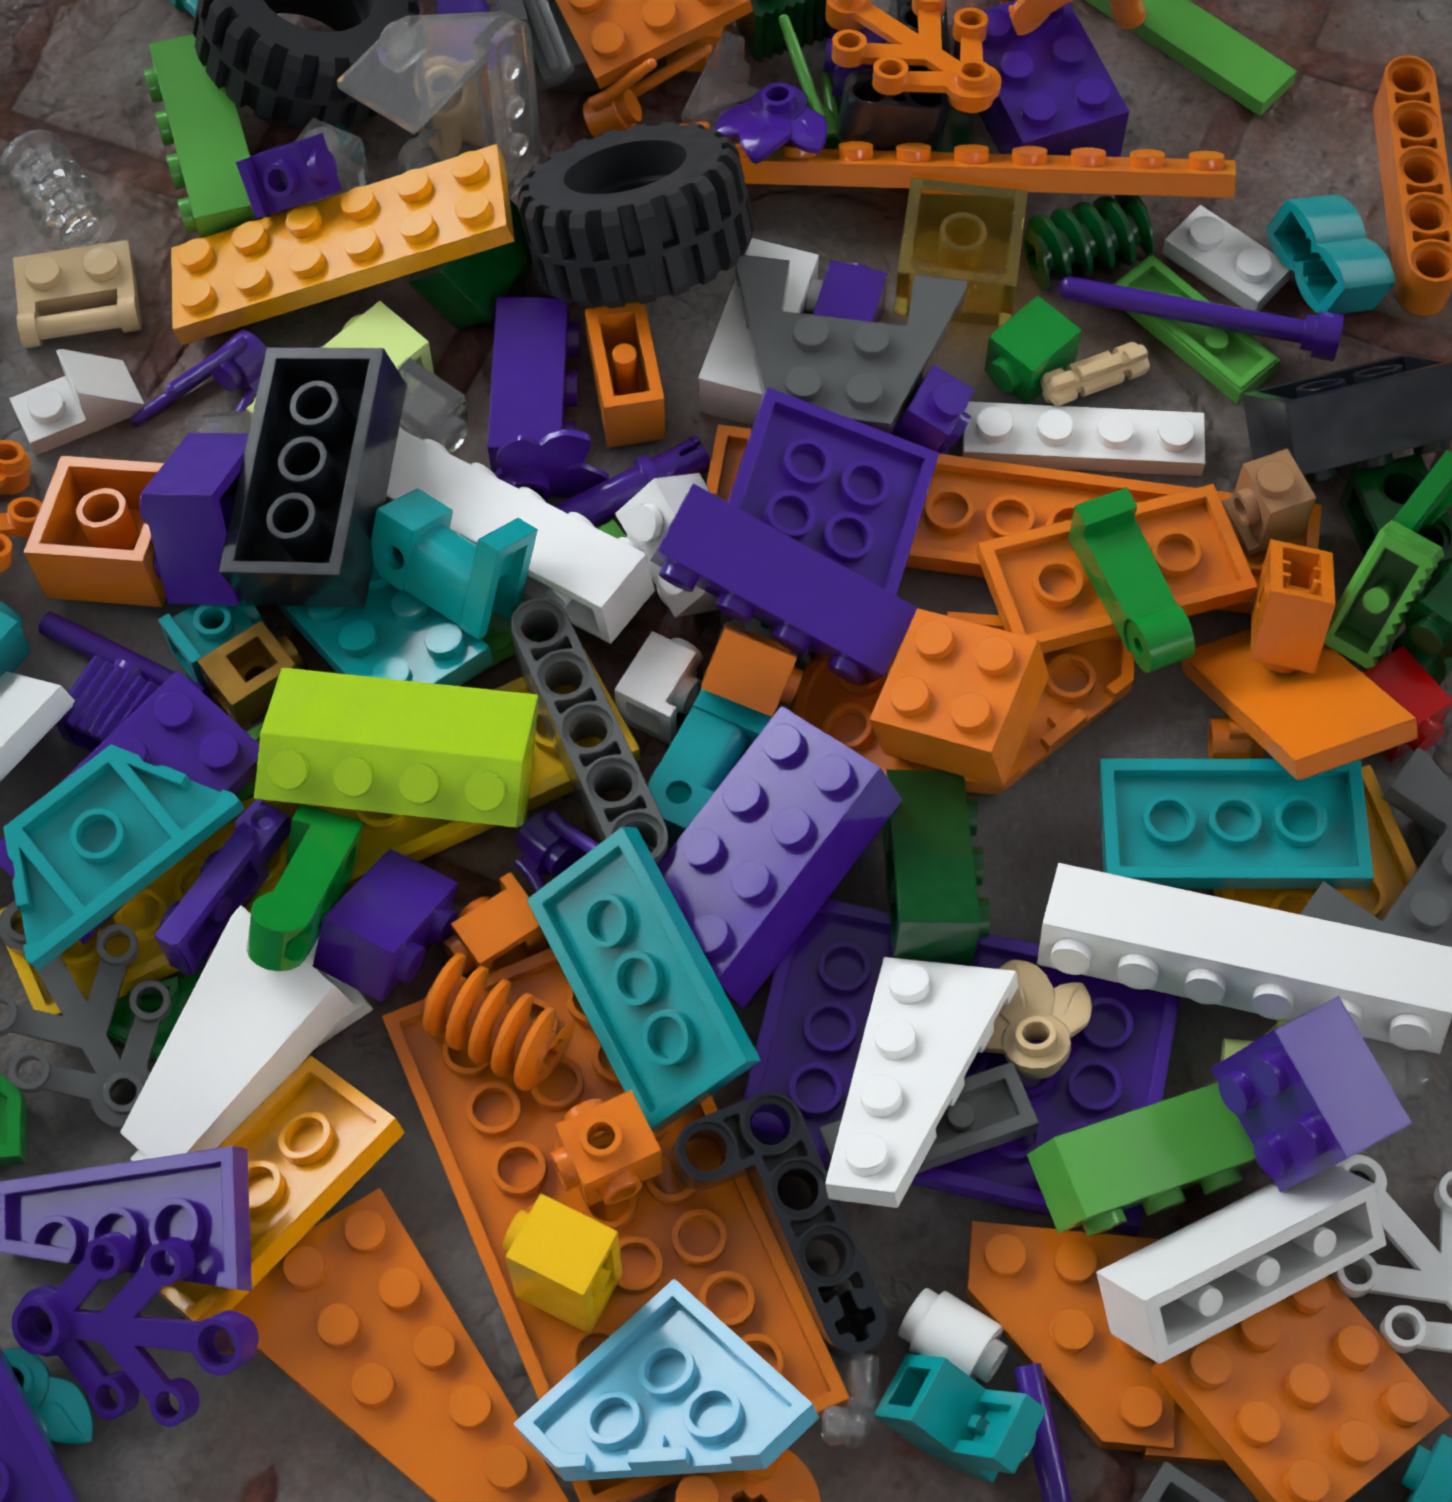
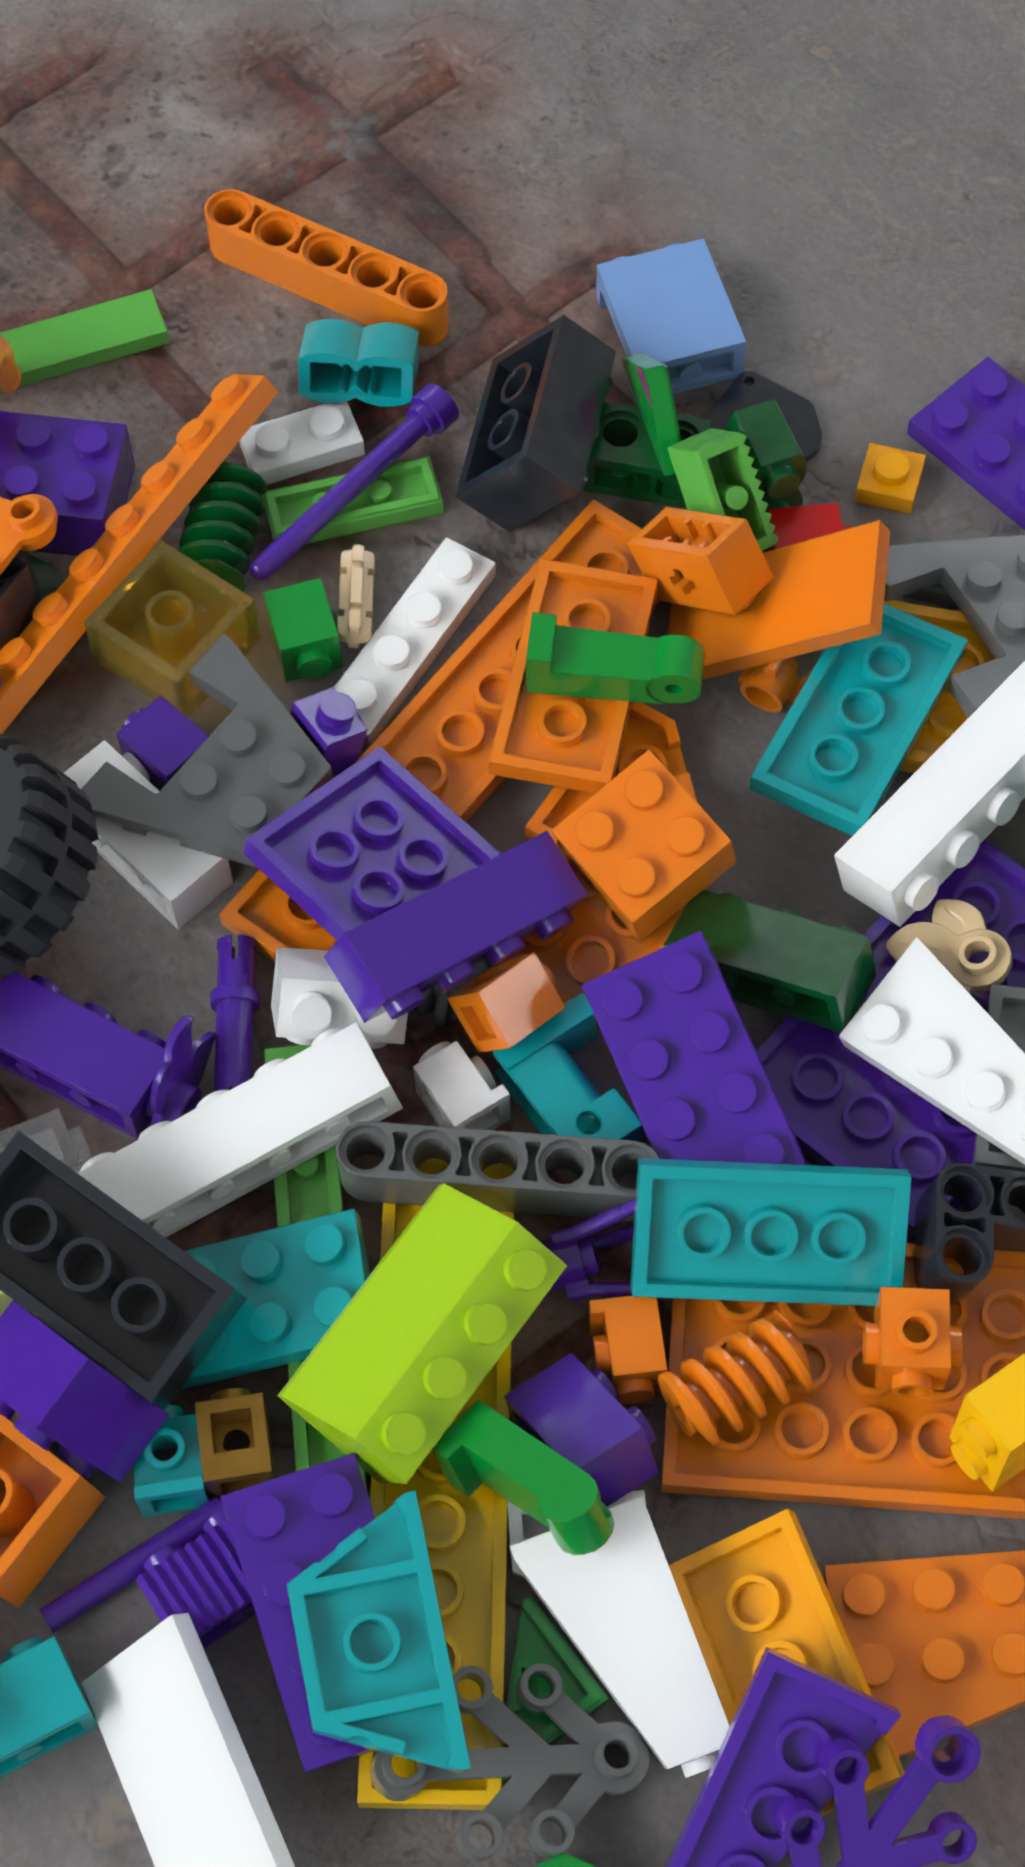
camera: 60 degrees left, 0 degrees up
(224, 883) = (460, 1556): dark purple hinge -> none
(448, 569) = (257, 1201): teal piece -> none
(625, 374) = (122, 962): orange brick -> none
(1269, 502) = (583, 525): medium nougat brick -> none

